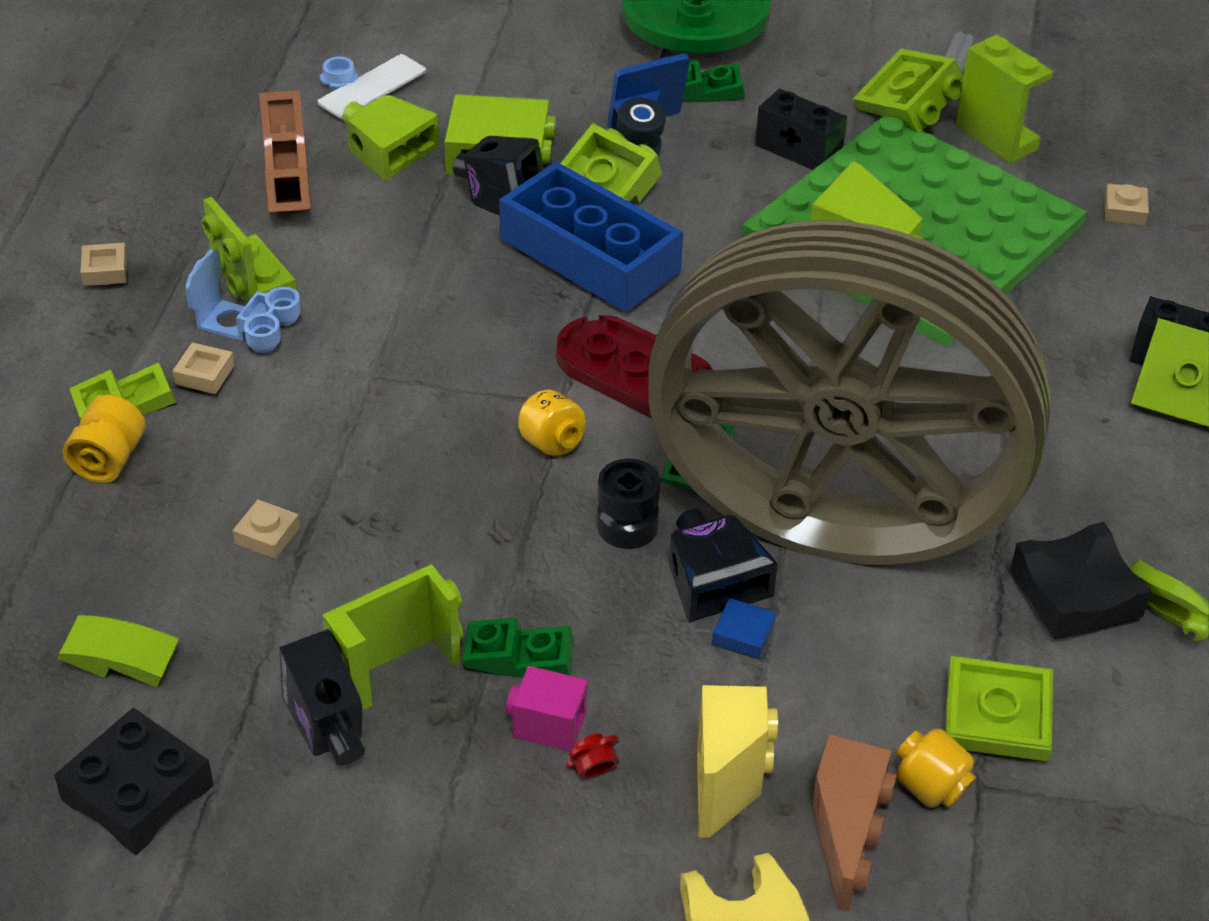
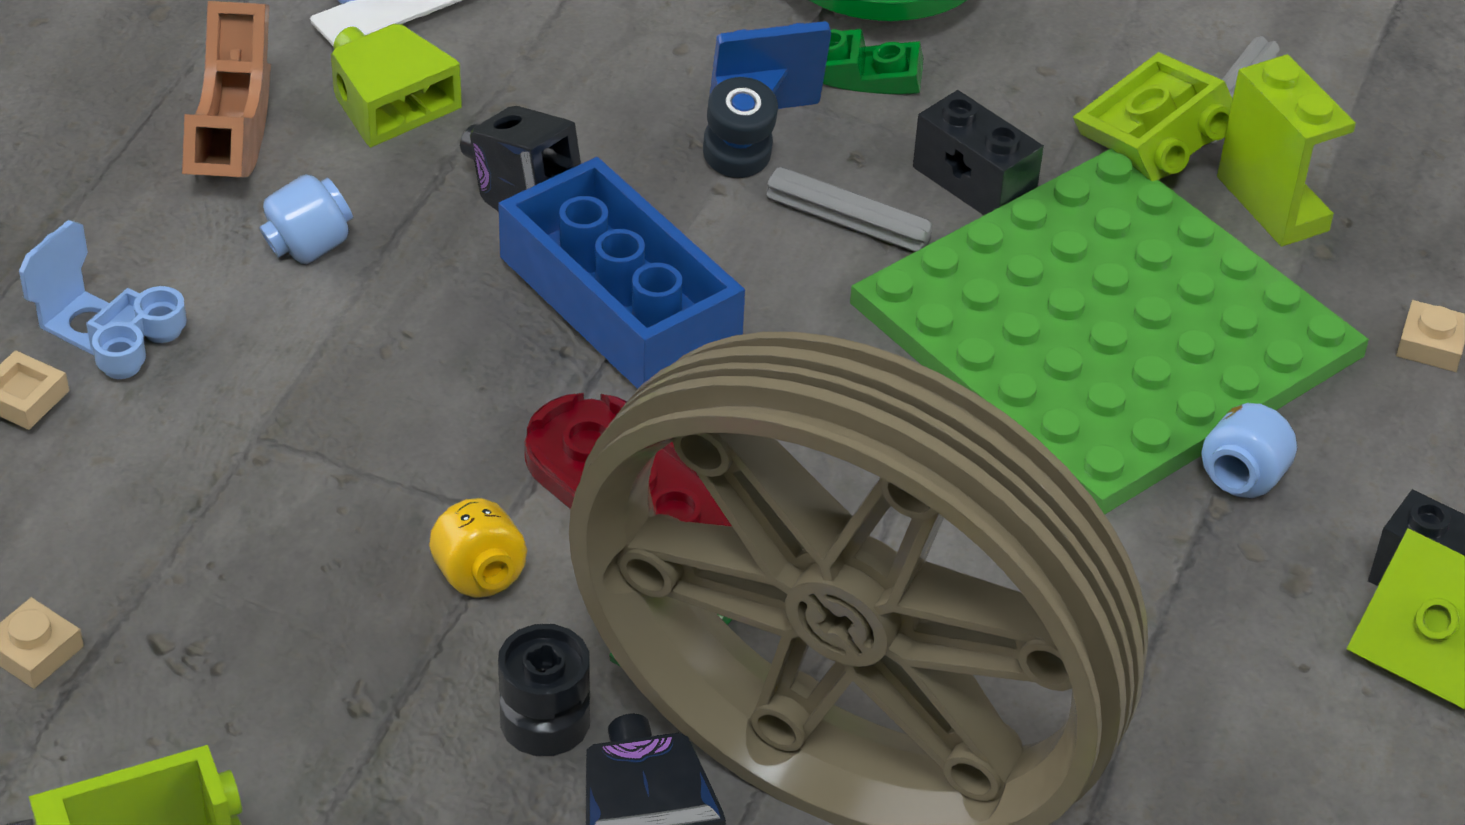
camera: 10 degrees right, 0 degrees up
(244, 260) = (132, 244): lime bracket -> none
(362, 230) = (305, 219): none -> light blue head
(485, 116) = (550, 82): lime panel -> none
(614, 163) = (686, 172): lime plate -> none
(724, 176) = (849, 209): none -> light grey axle
(865, 200) = (1022, 309): lime slope -> none
(1035, 288) = (1249, 450): none -> light blue head

